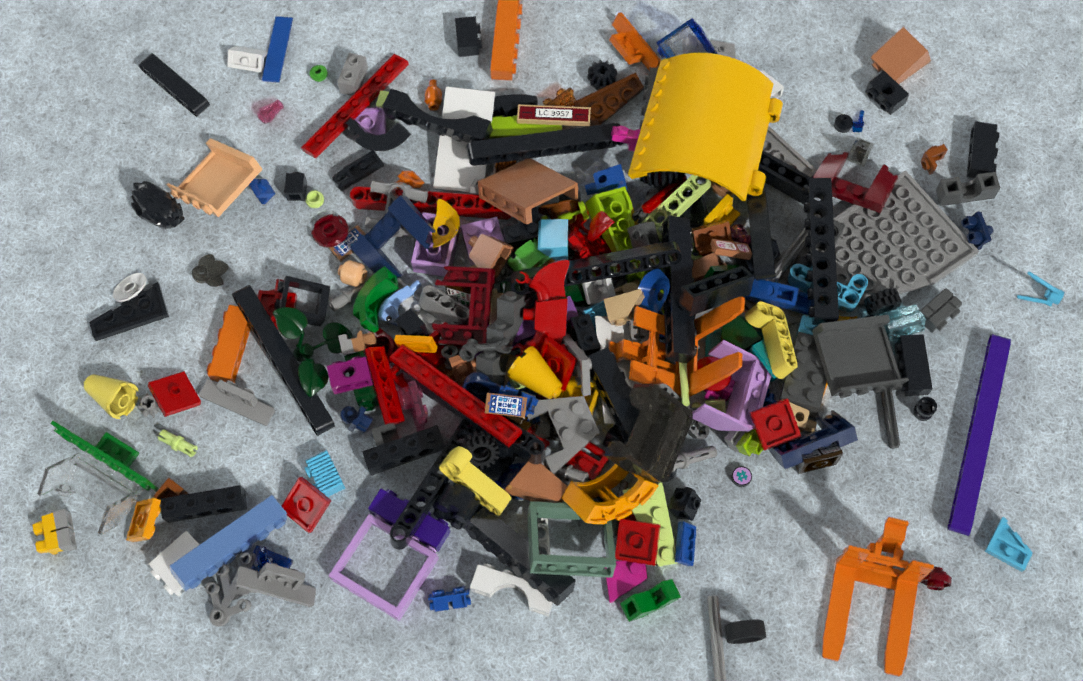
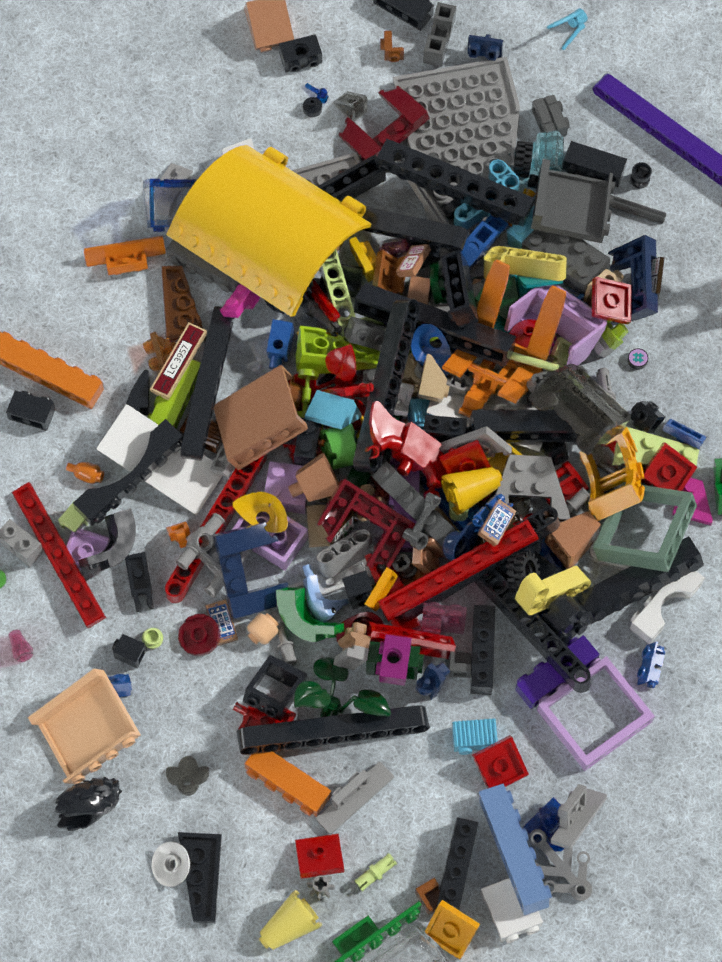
camera: 70 degrees left, 0 degrees up
(602, 74) = (148, 305): black gear -> none

